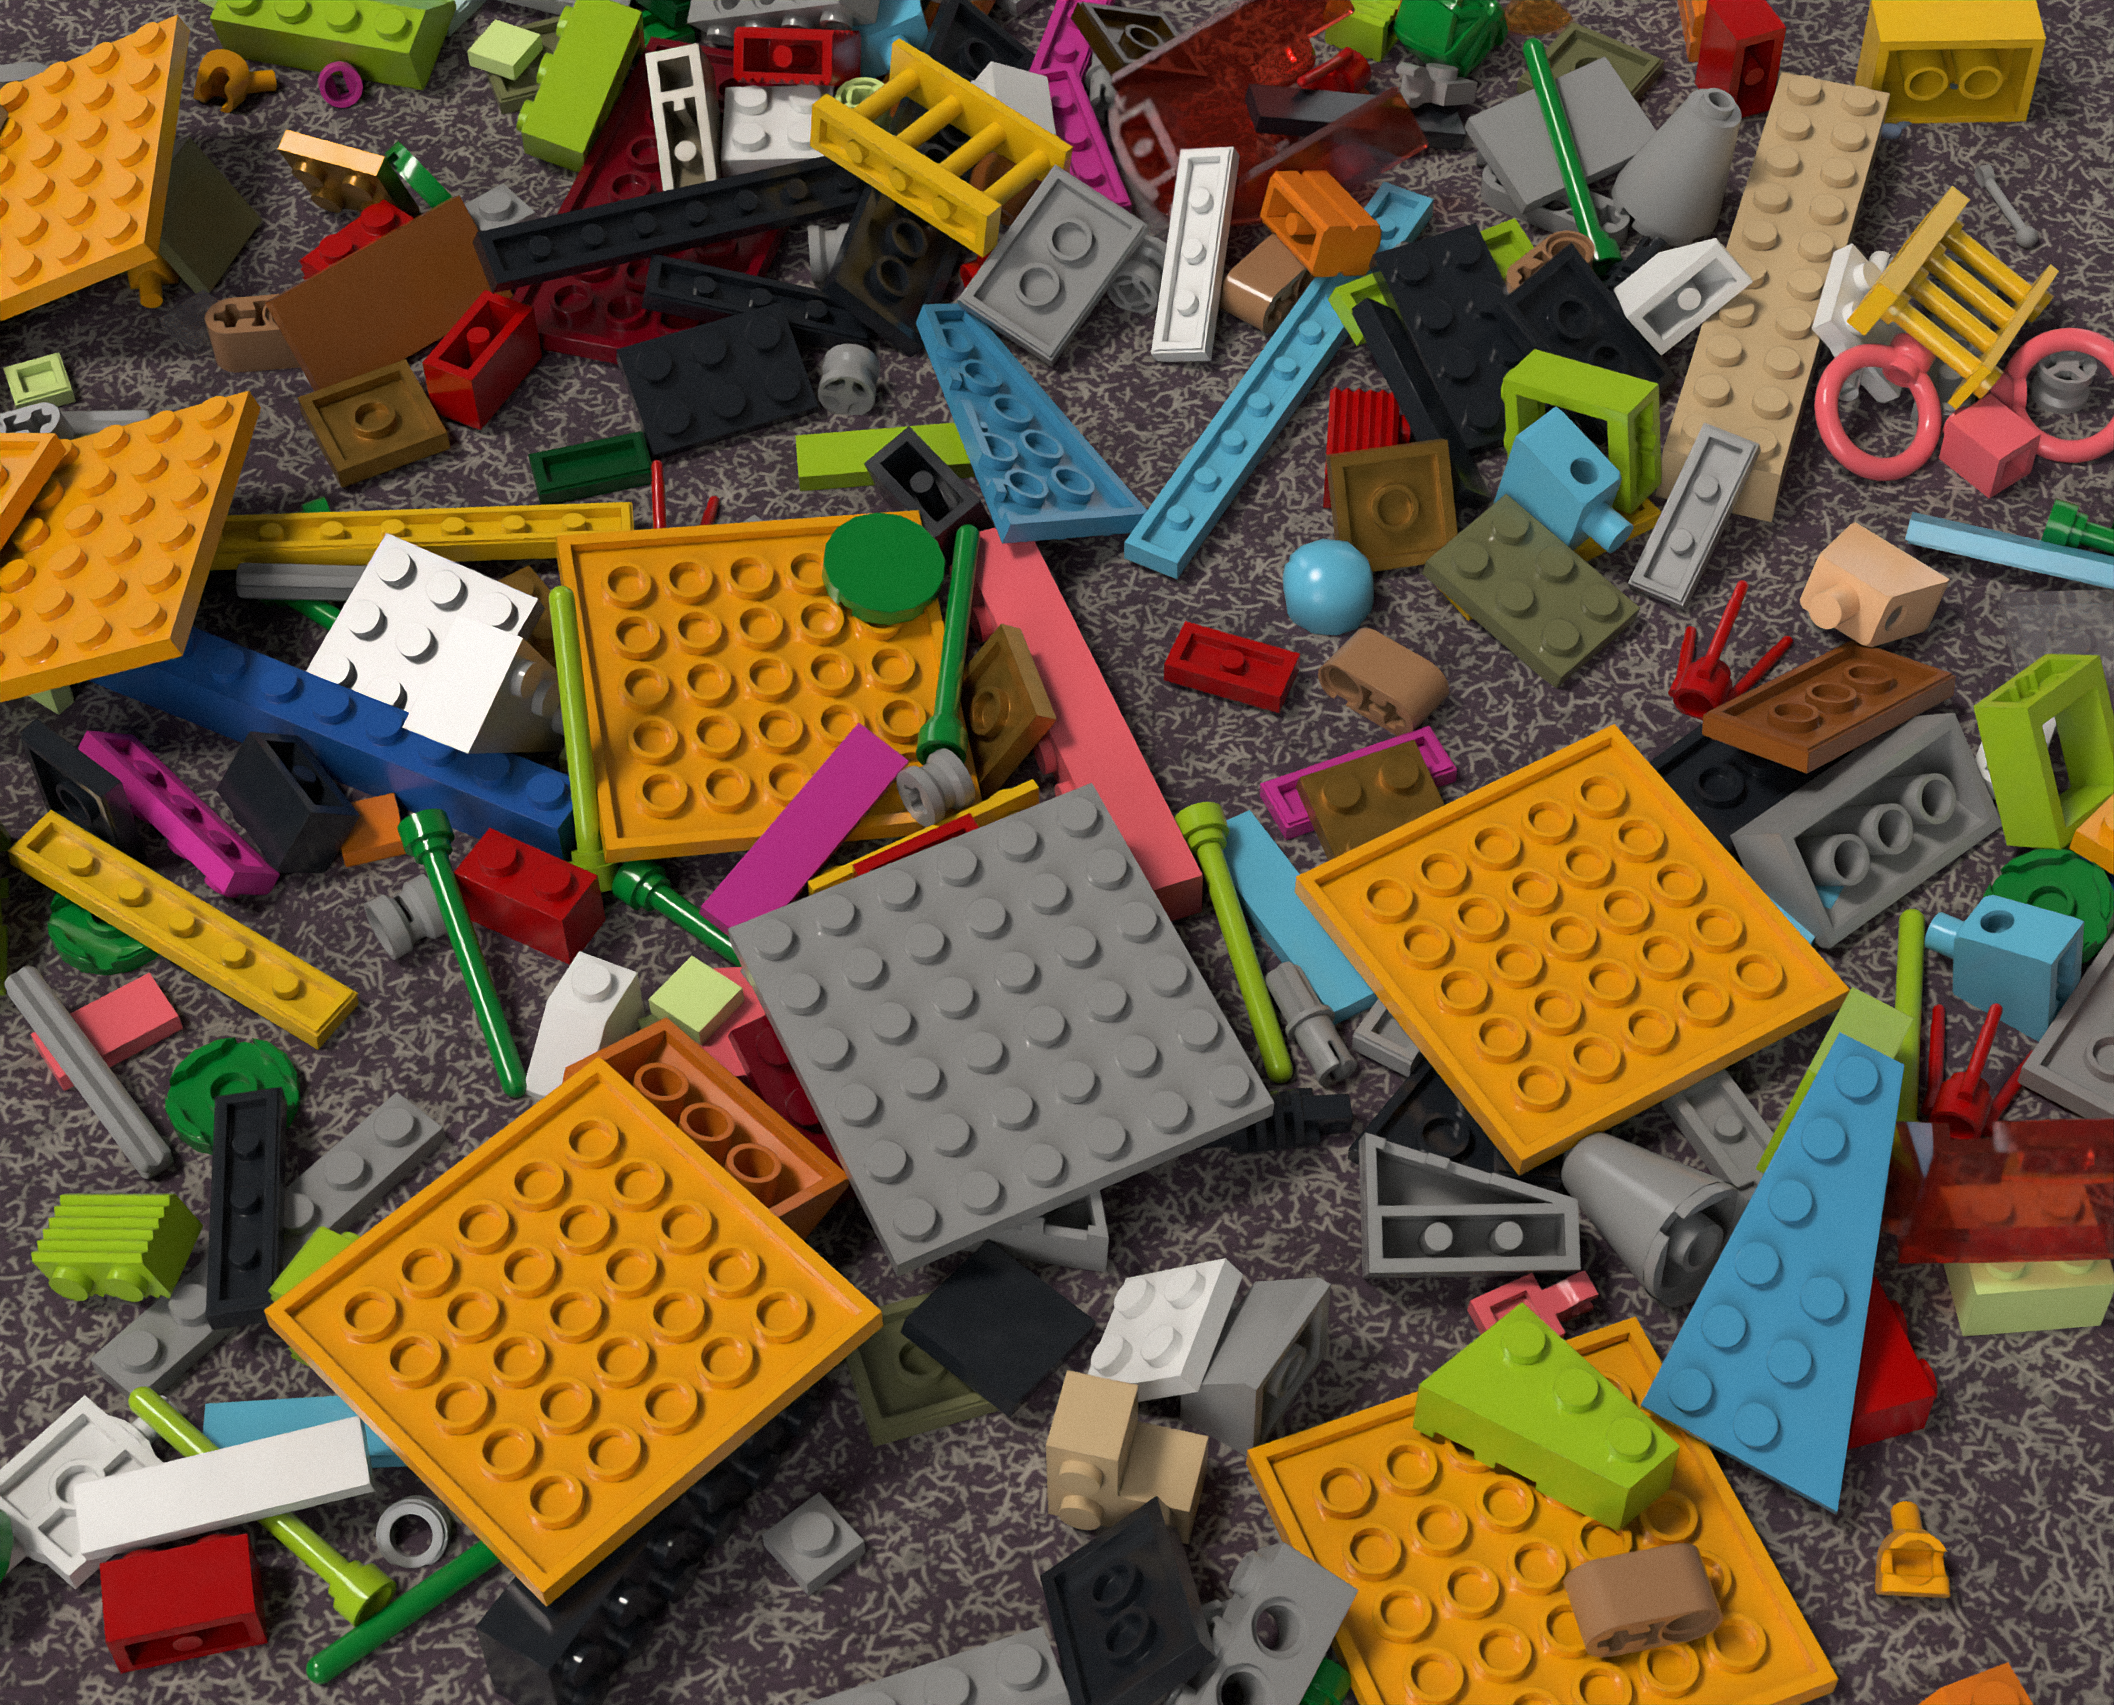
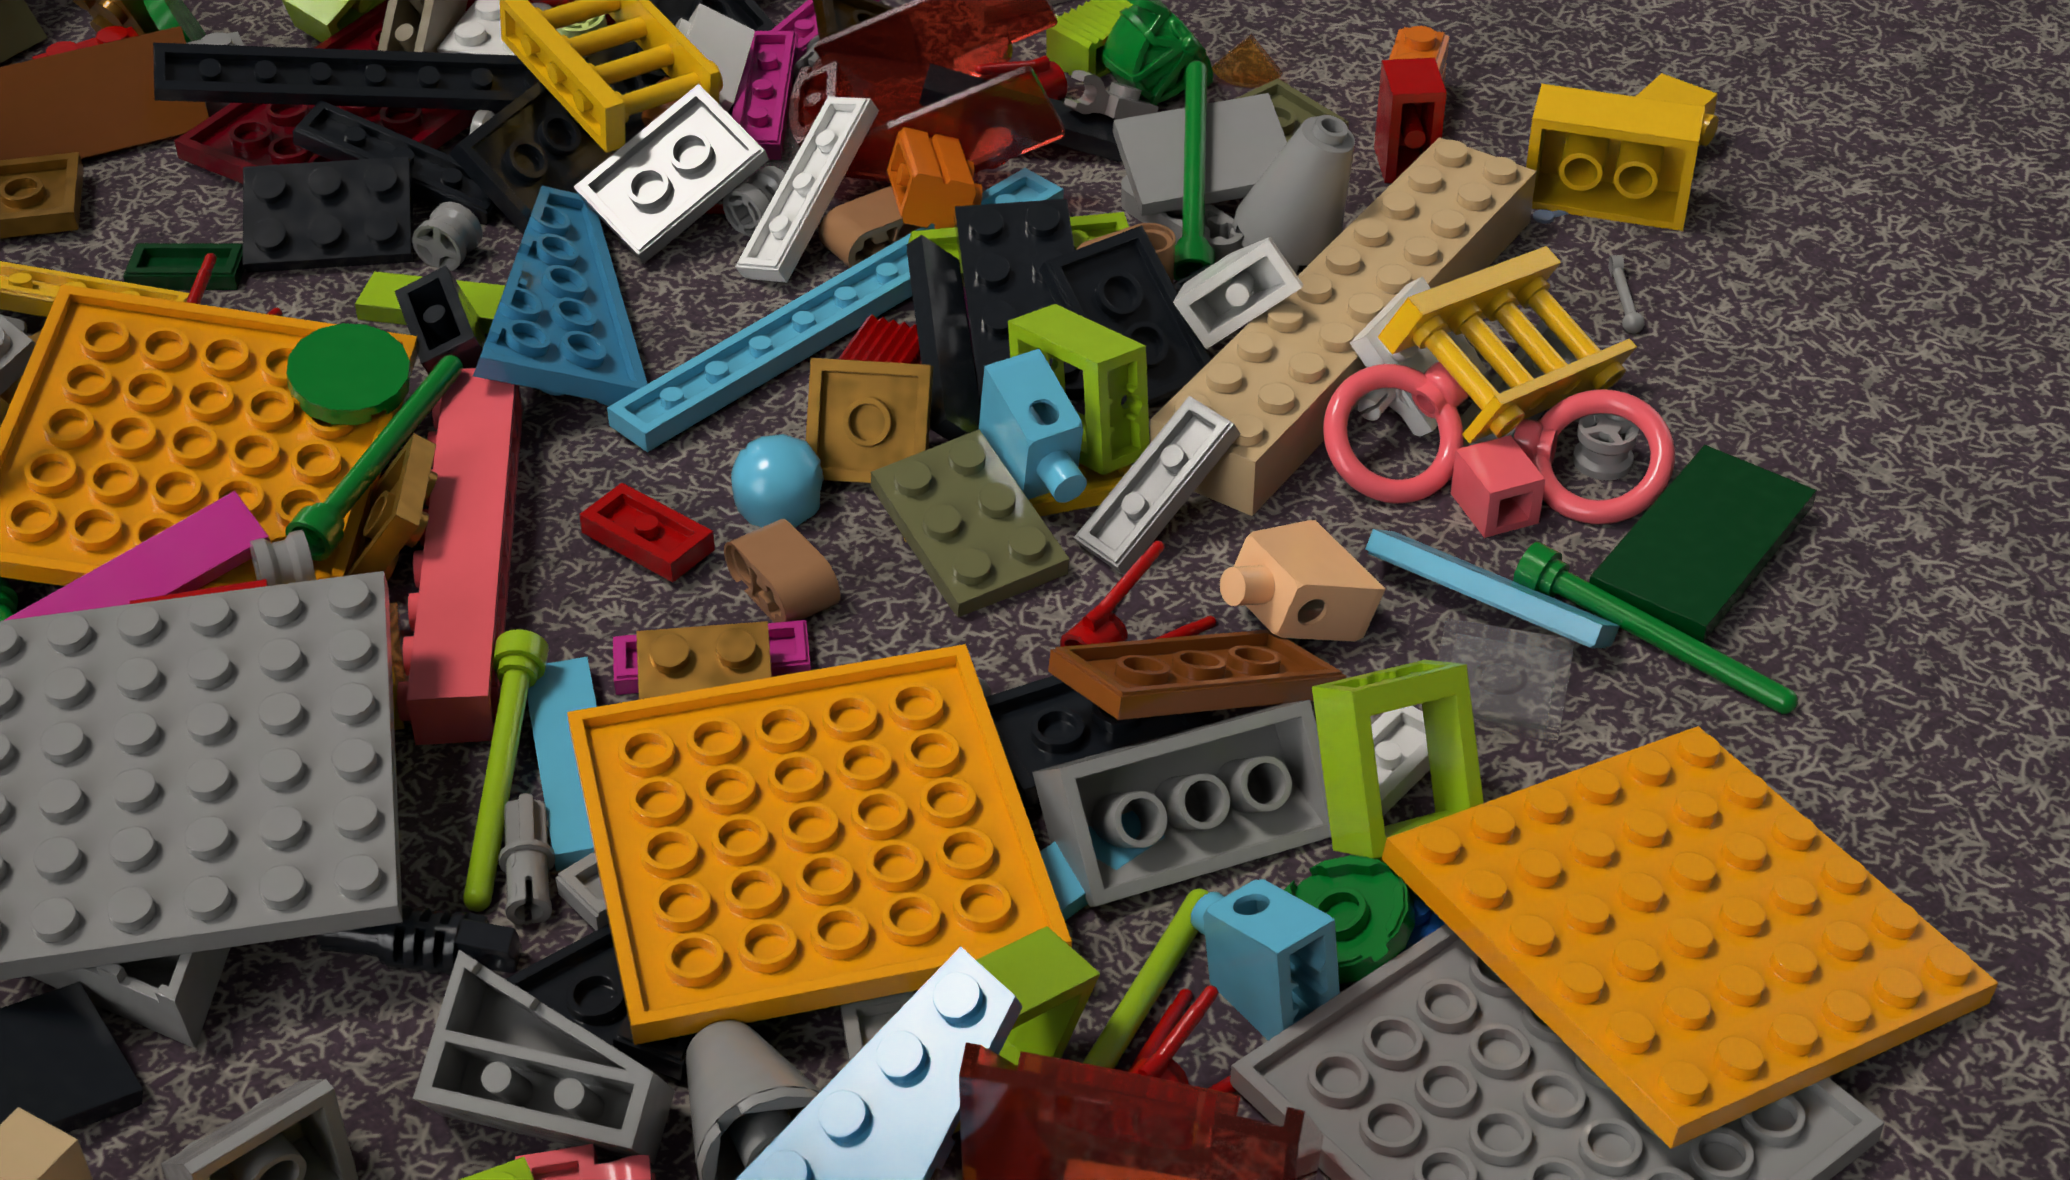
camera: 15 degrees right, 10 degrees down
(482, 359) = (137, 160): red brick -> none
(1166, 1328) = (192, 1099): white plate -> none

